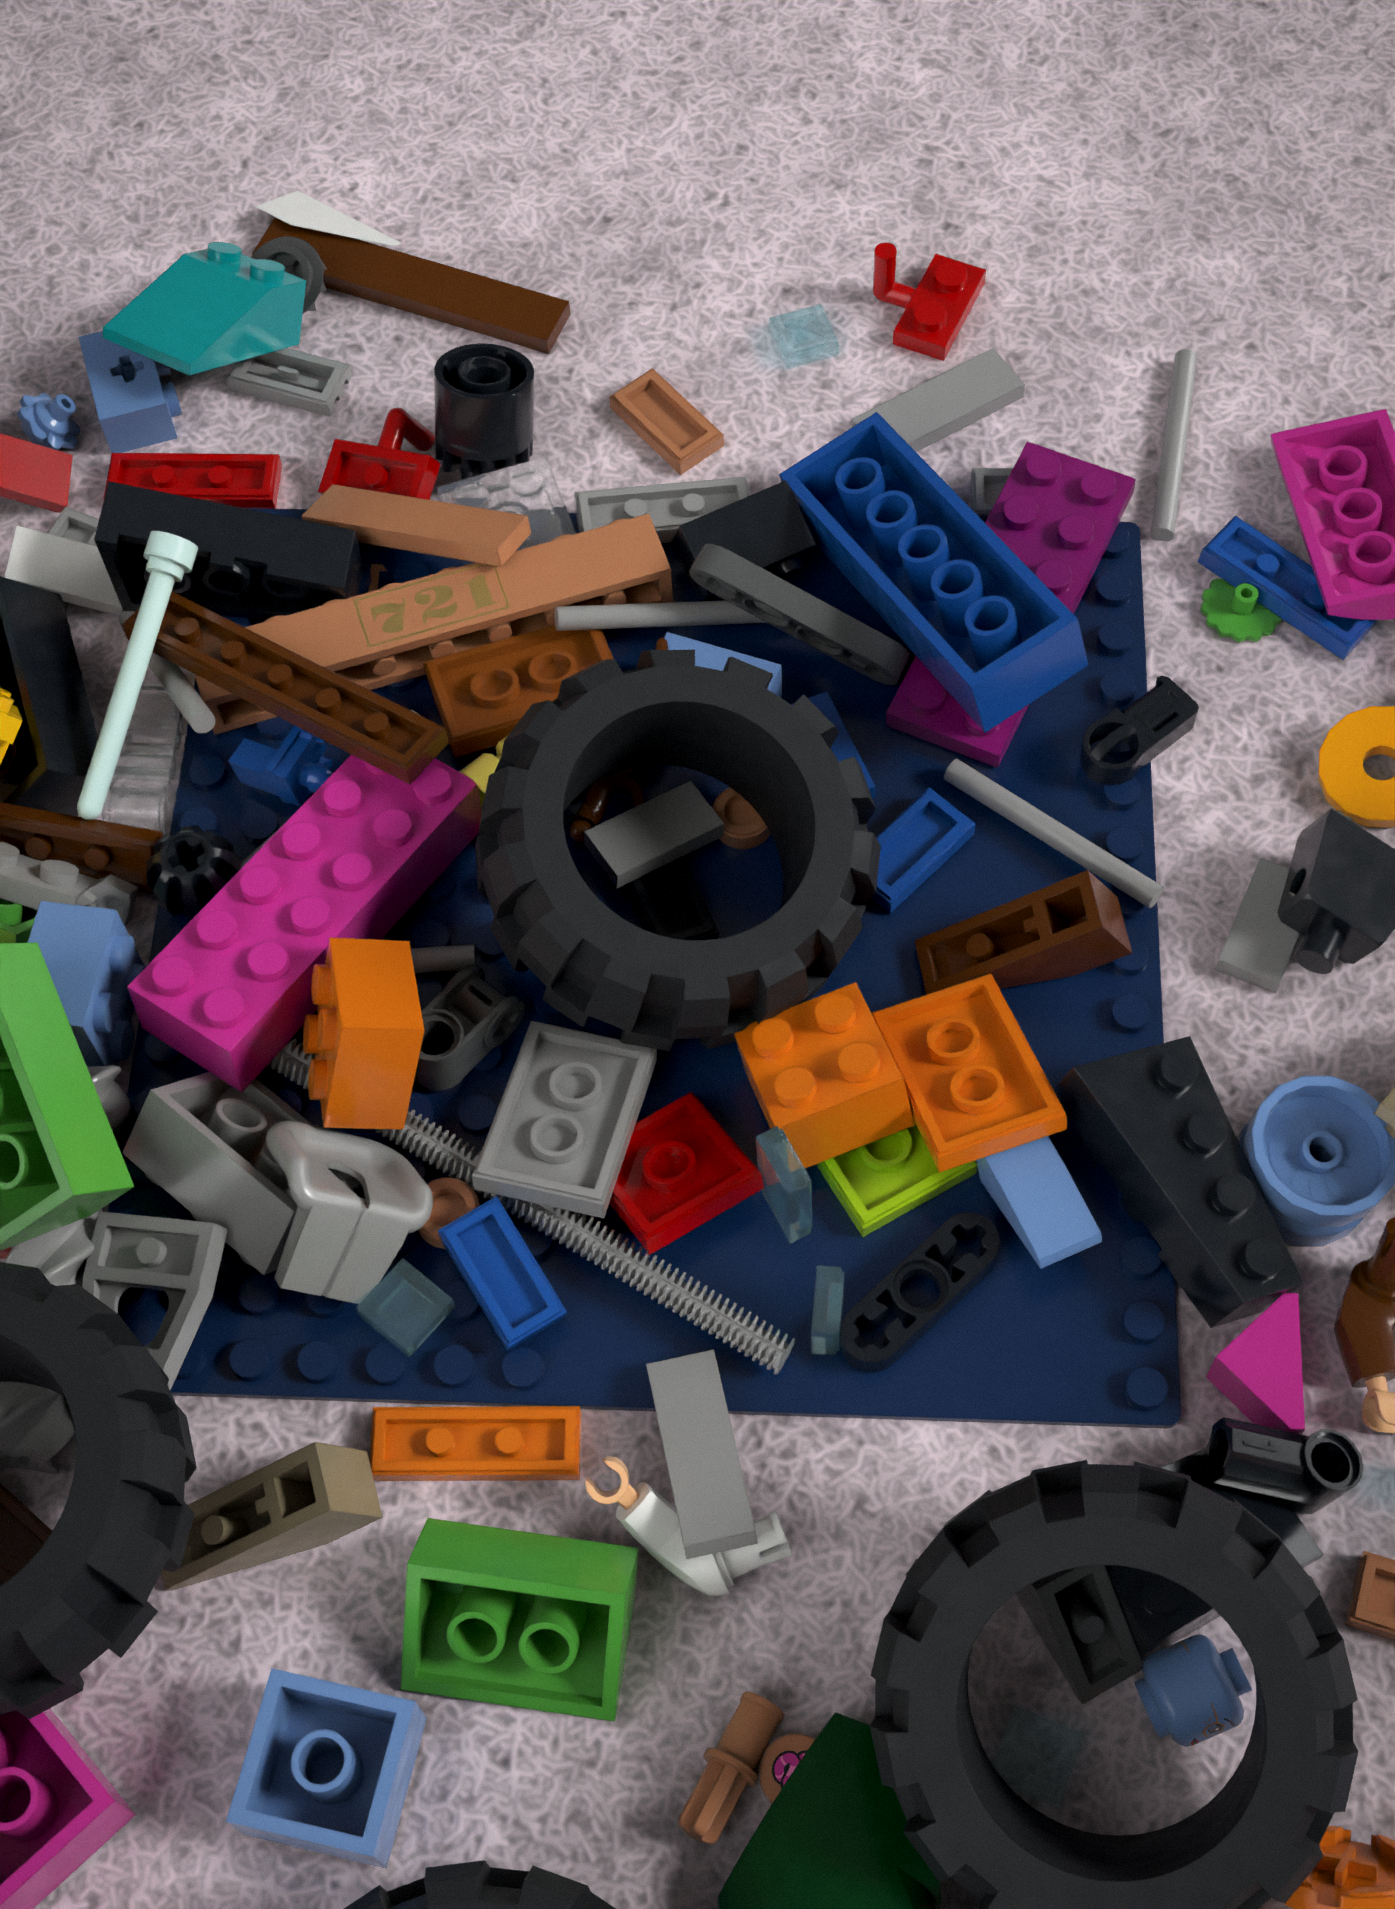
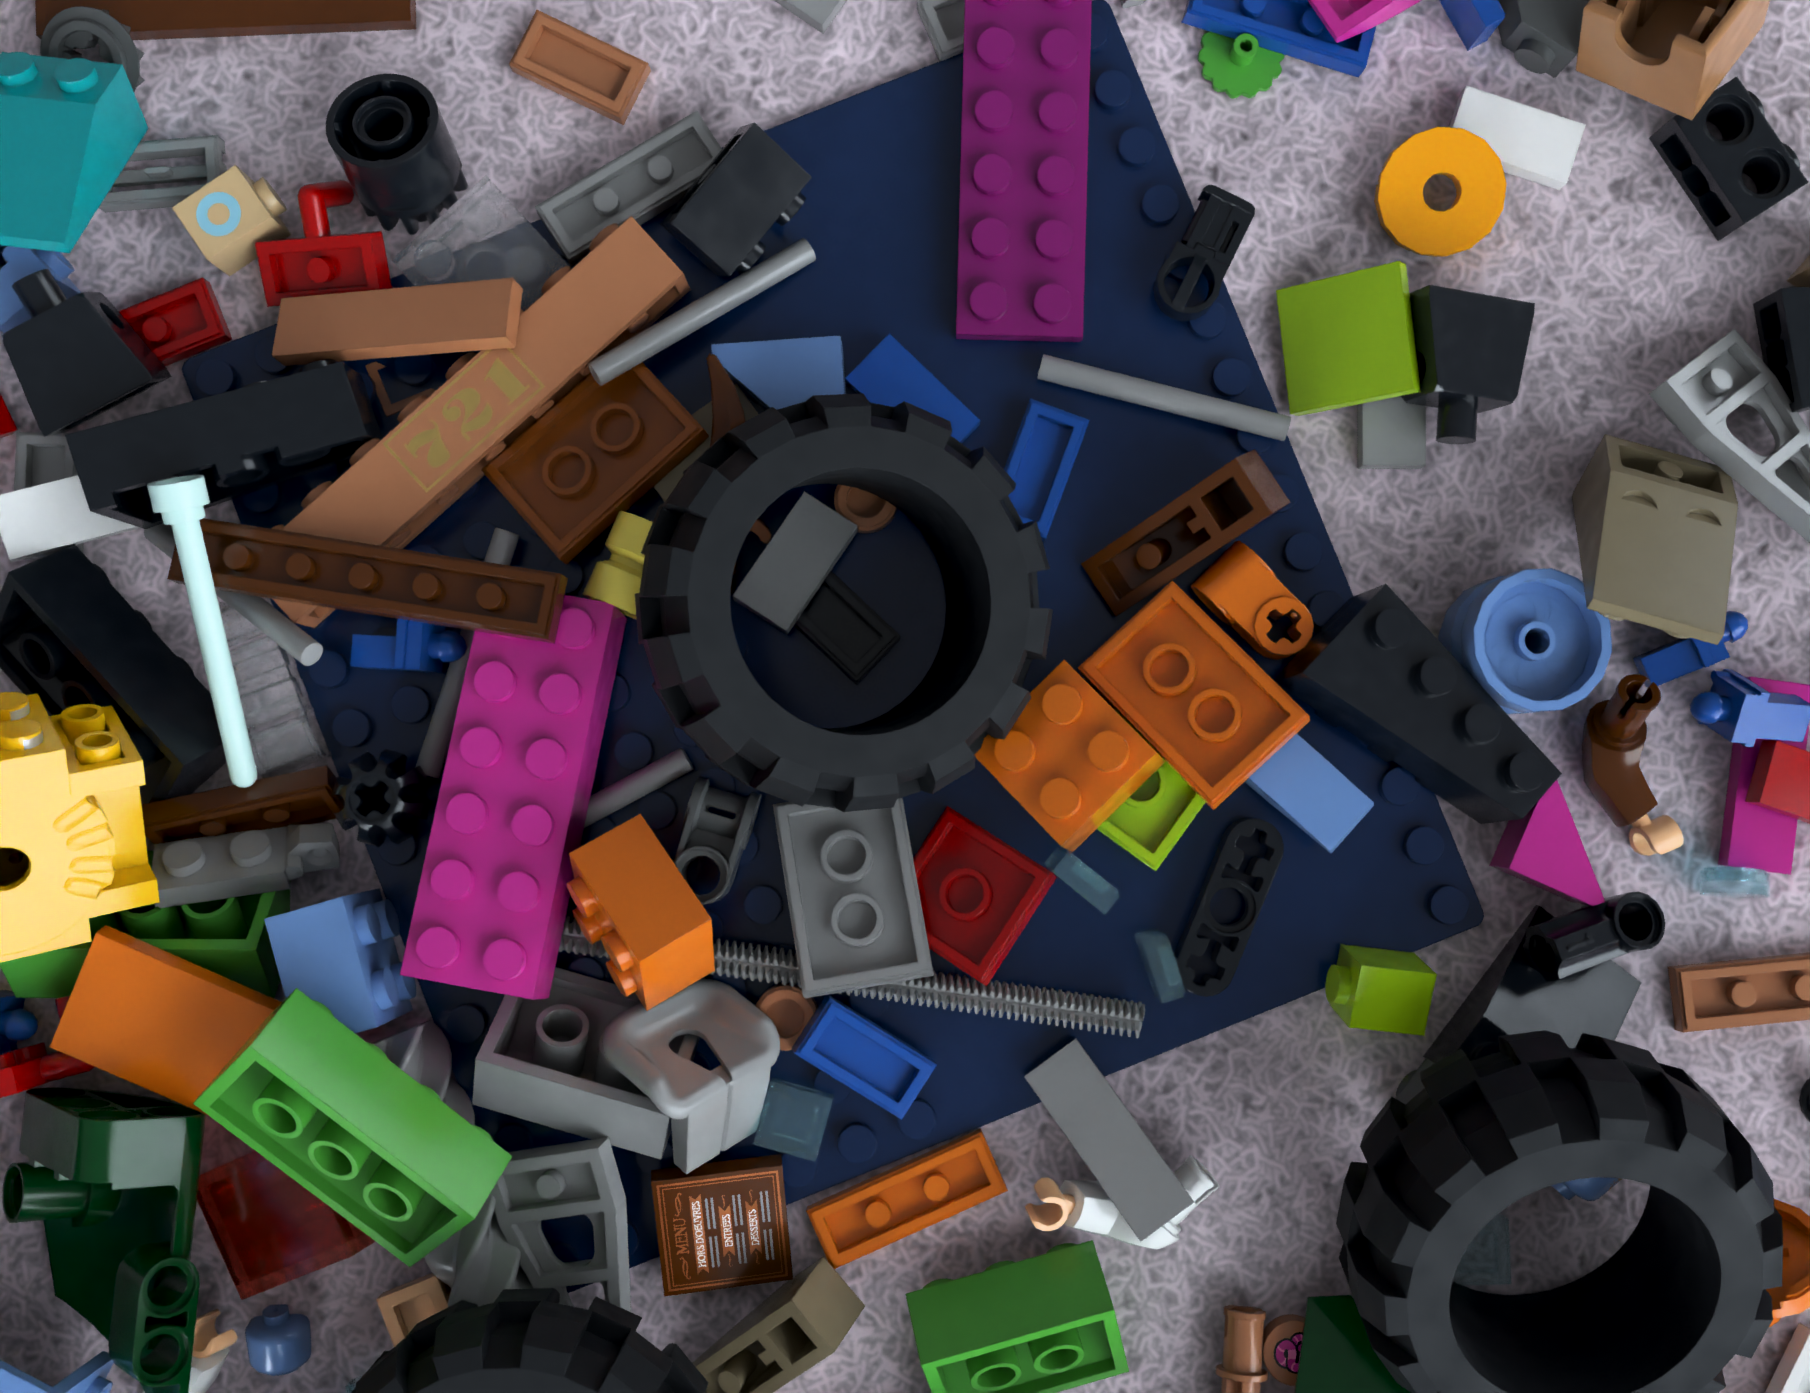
camera: 25 degrees left, 25 degrees up
(147, 449) = (76, 355): none -> black torso
(285, 1374) = (722, 1225): none -> reddish brown tile
(326, 413) = (232, 216): none -> tan brick
(799, 614) = (829, 268): dark grey beam -> none
(936, 572) = (946, 168): blue brick -> none
(1037, 1425) = (1381, 989): none -> lime brick
(1058, 1021) = (1246, 591): none -> orange piece
(1244, 846) = (1348, 339): none -> lime tile

